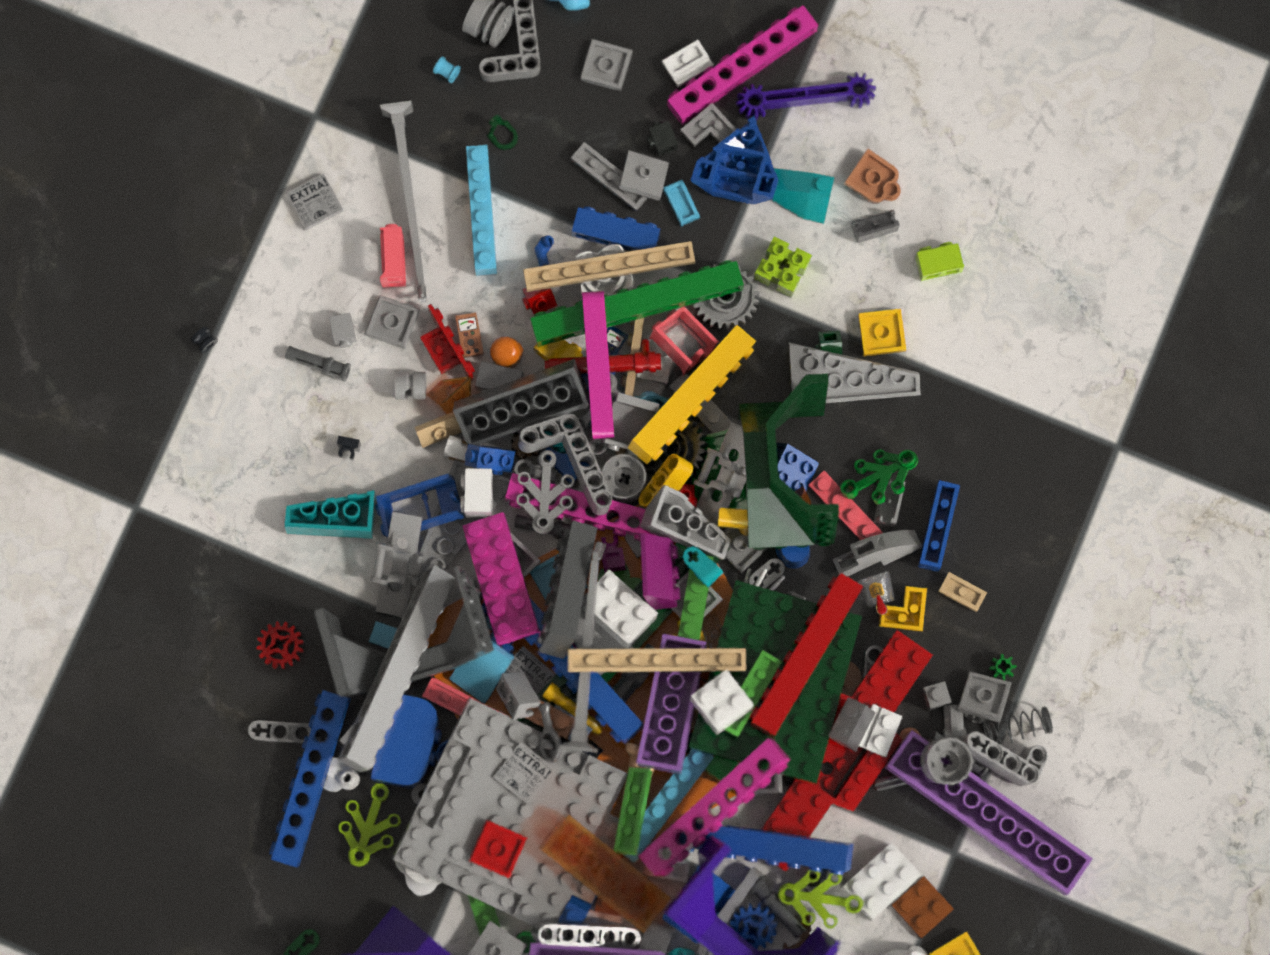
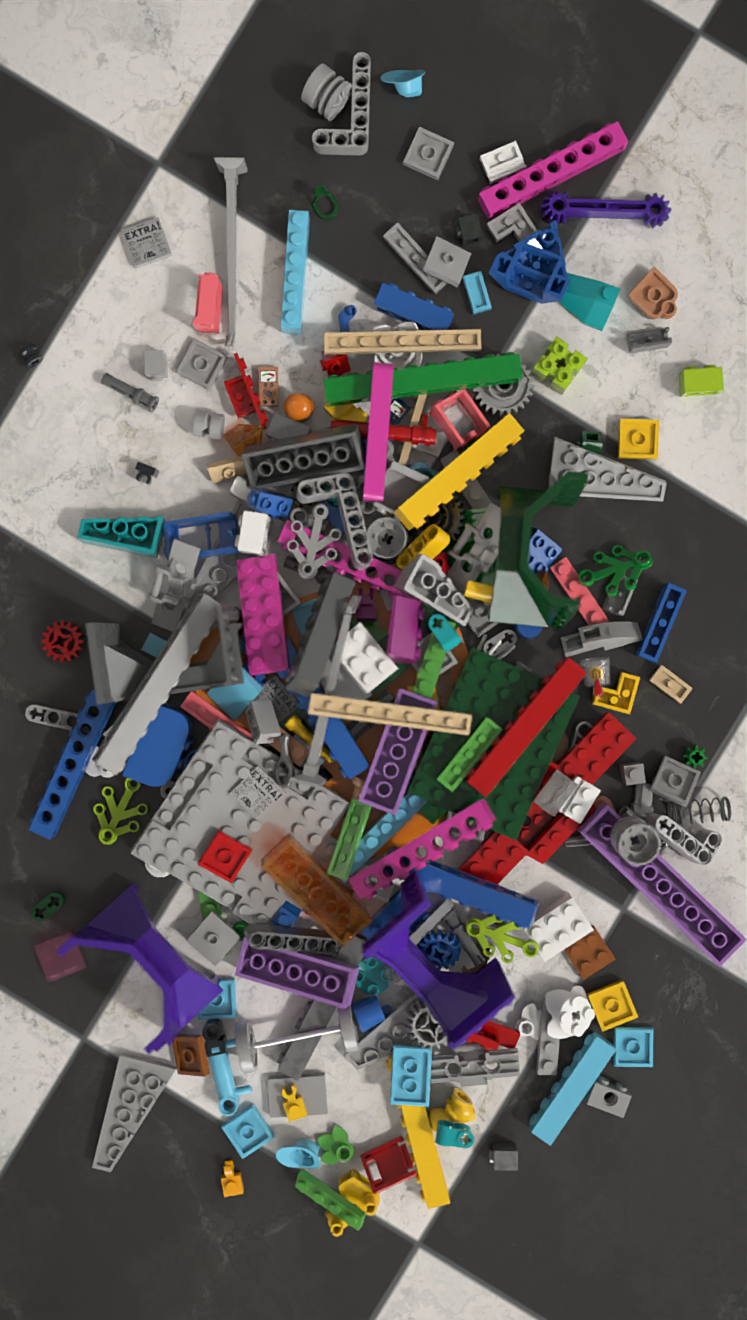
camera: 10 degrees right, 10 degrees up
(446, 69) = (282, 135): medium azure bush -> none
(721, 702) = (443, 761): white brick -> none

